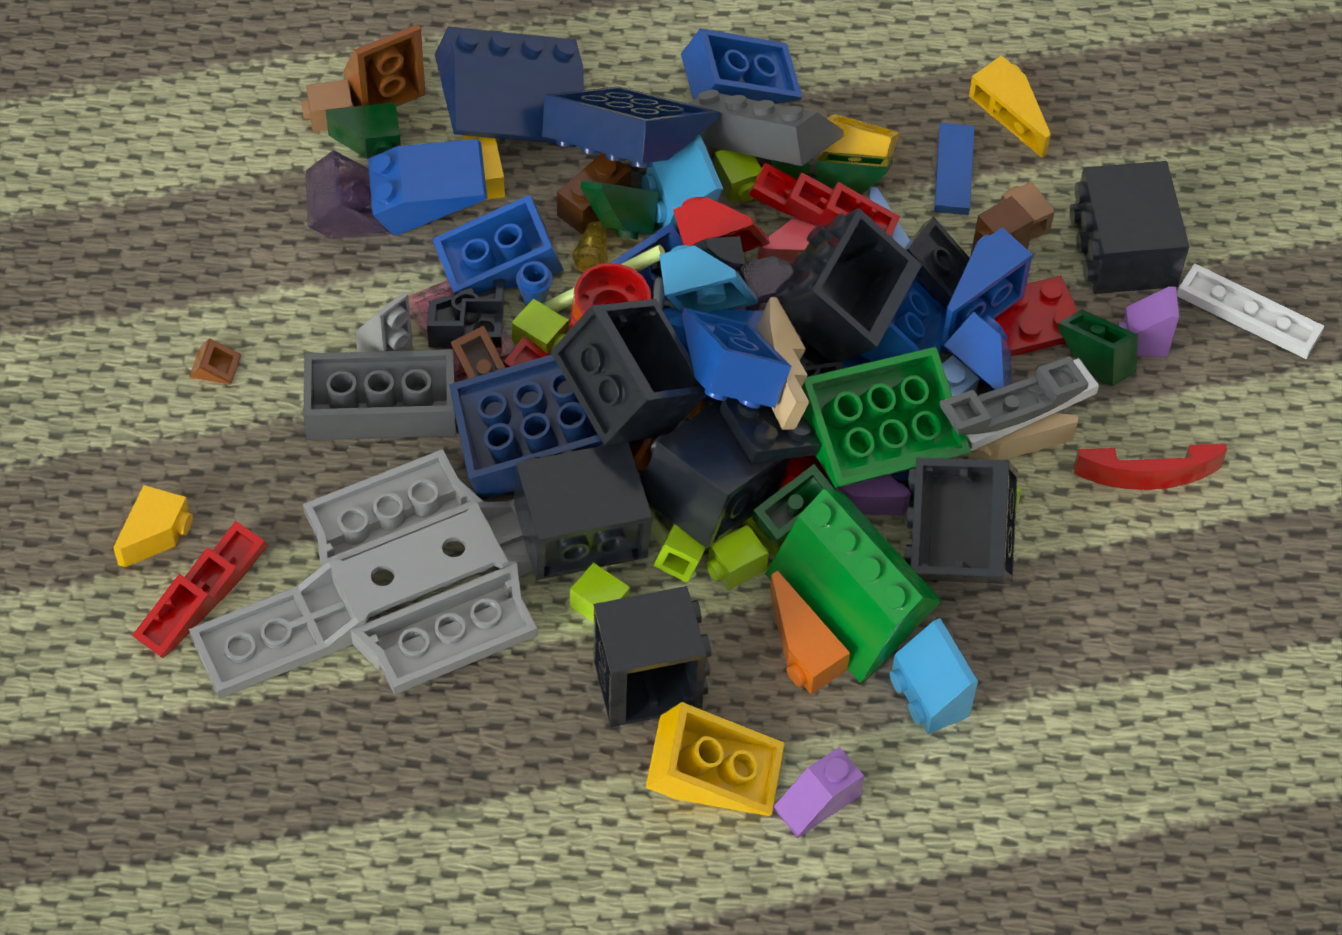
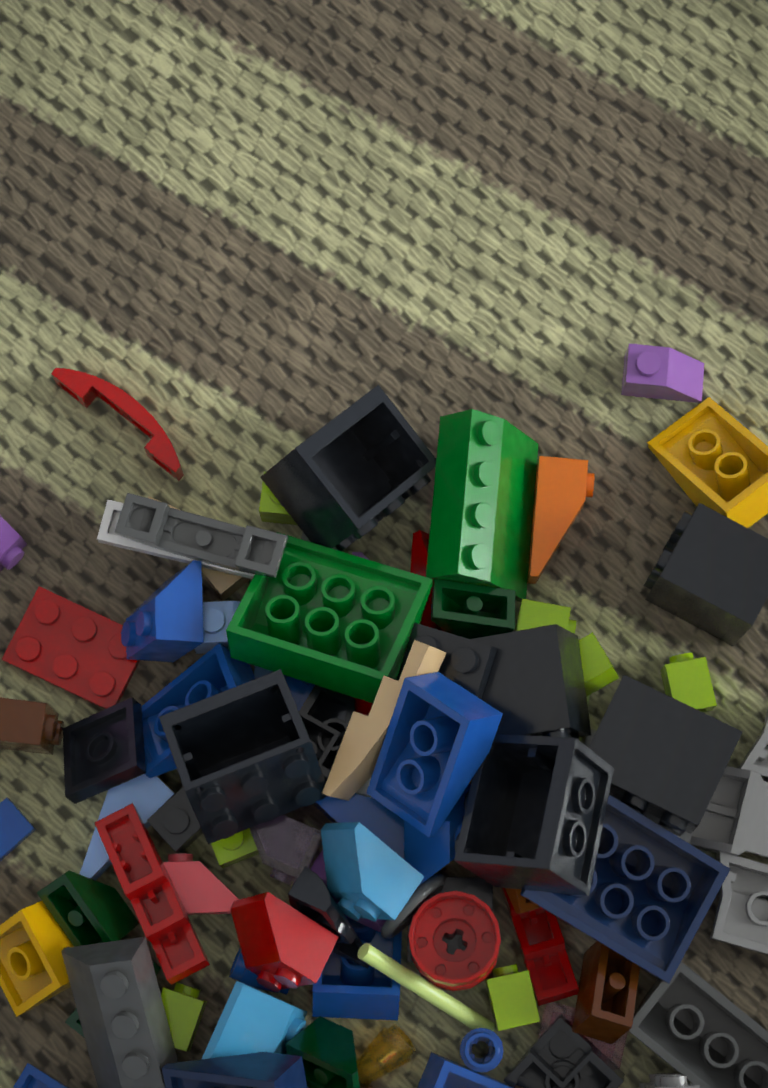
camera: 135 degrees left, 20 degrees up
(934, 678) = (494, 375): dark azure slope -> none
(990, 281) = (101, 678): blue slope -> none
(1101, 346) = (49, 556): dark green slope -> none

